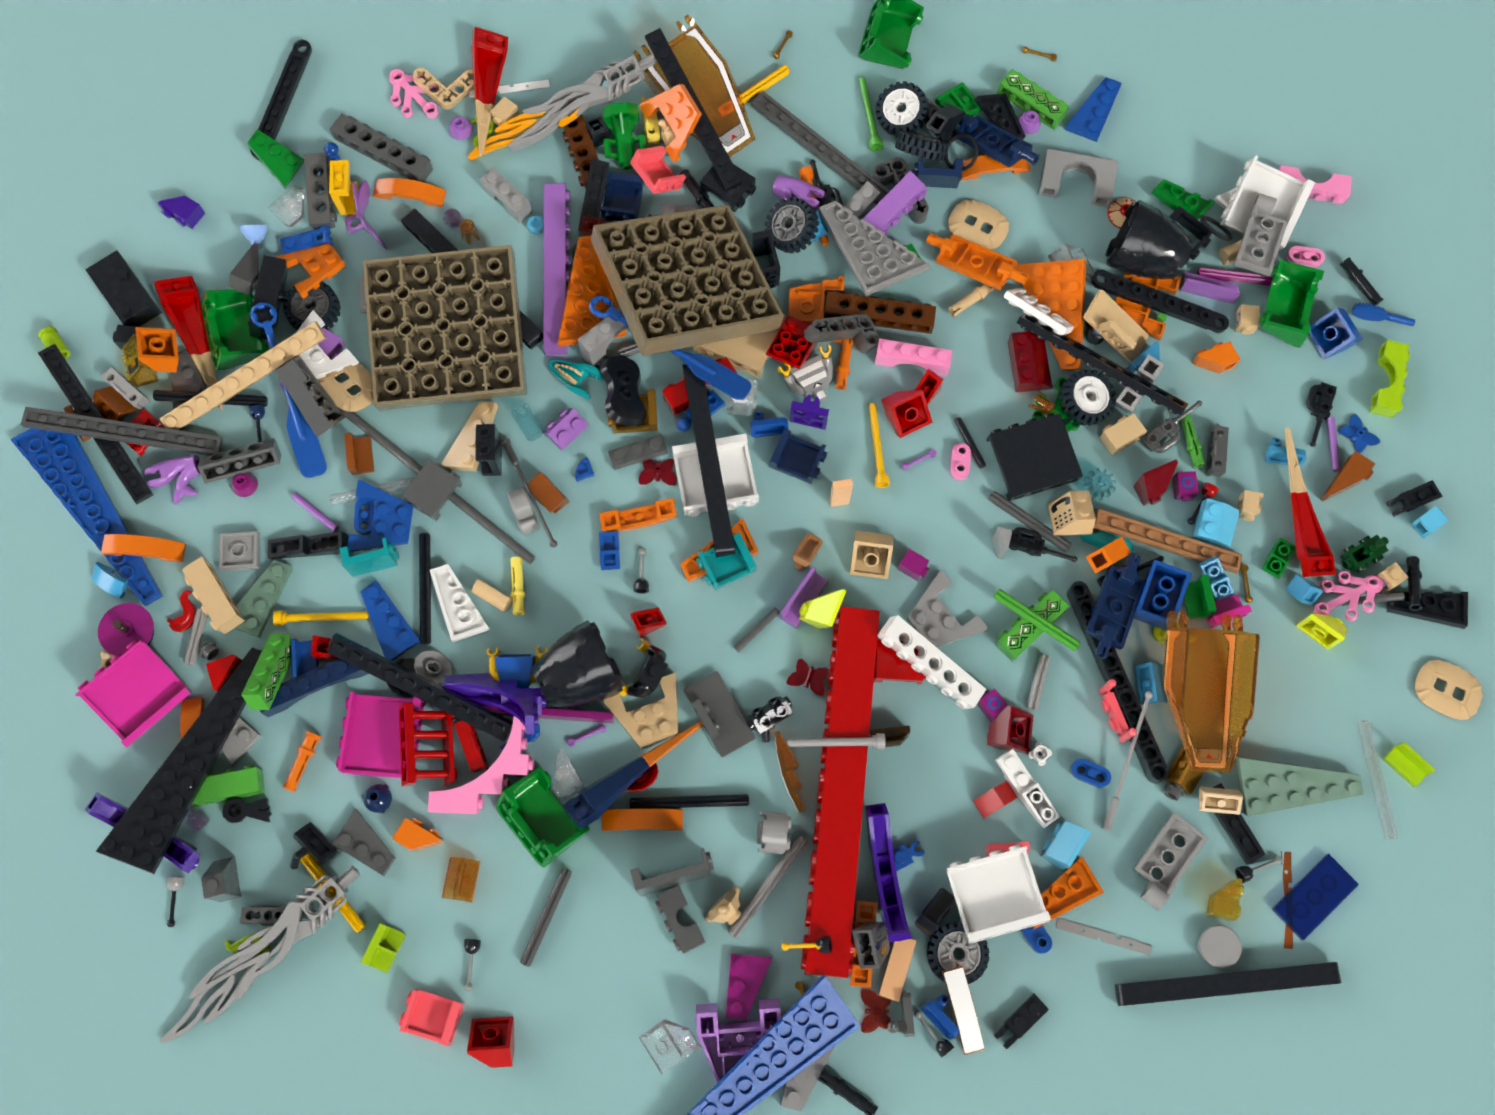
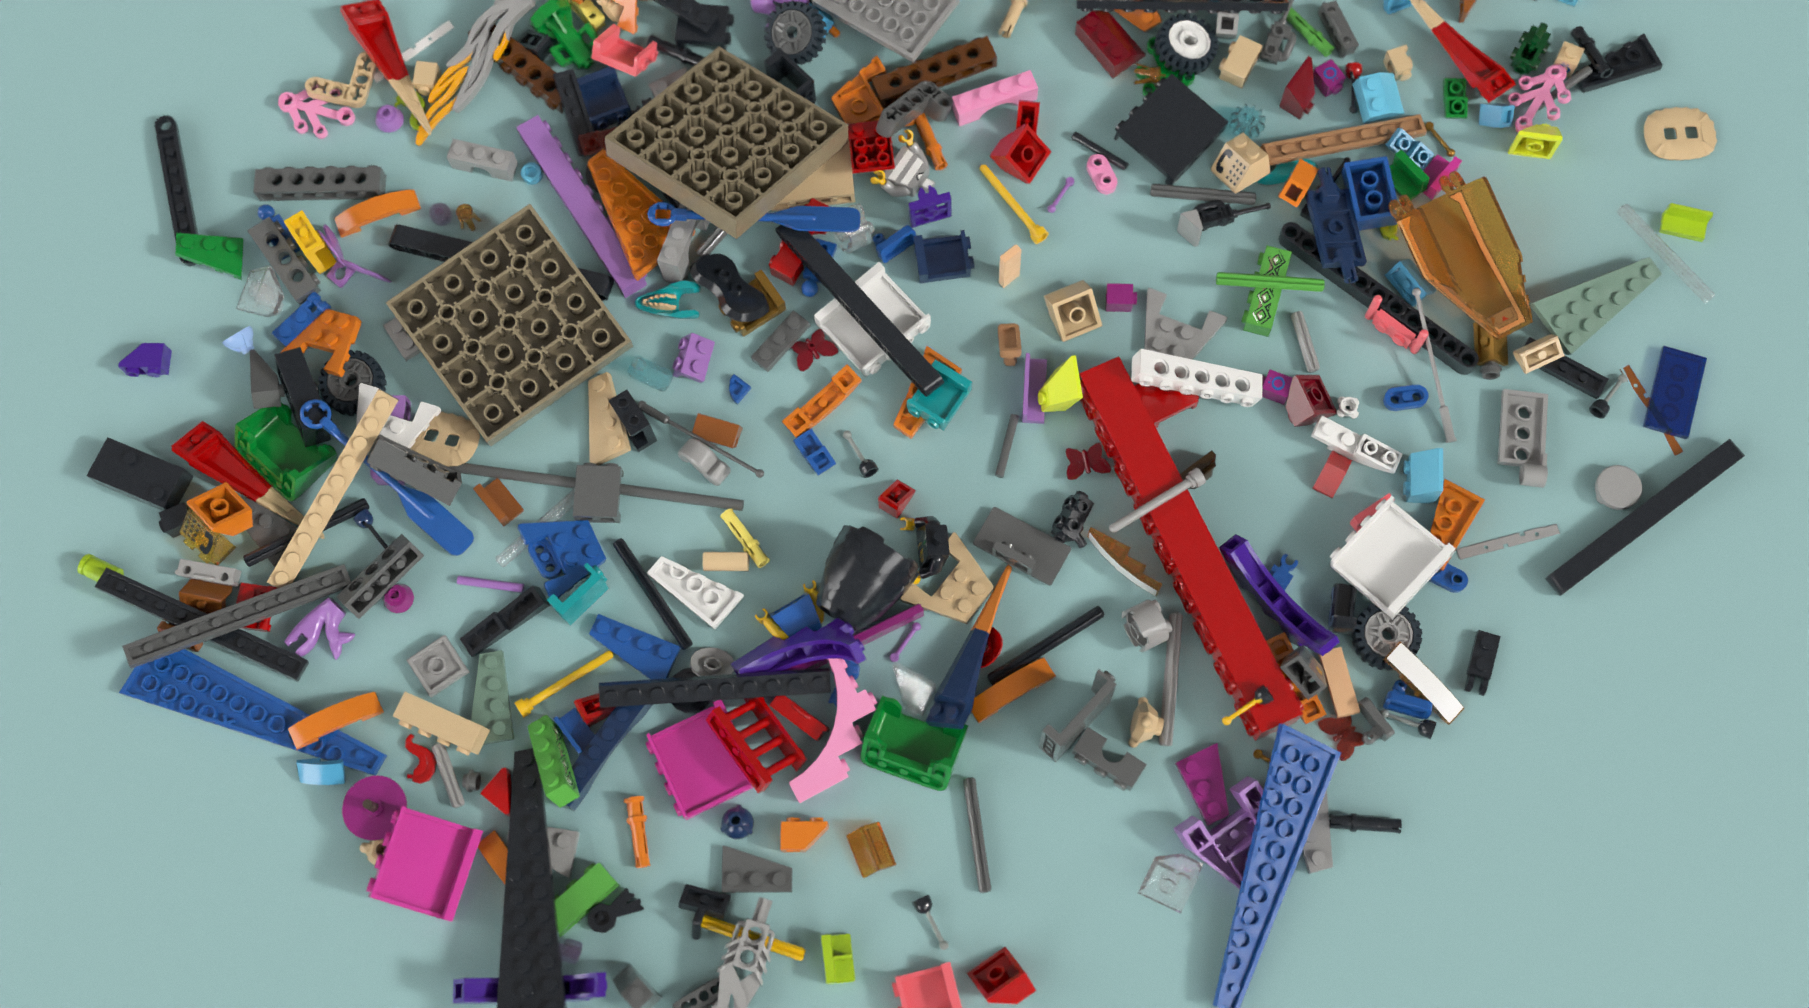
camera: 25 degrees left, 0 degrees up
(1225, 901) = (1599, 443): clear yellow slope -> none

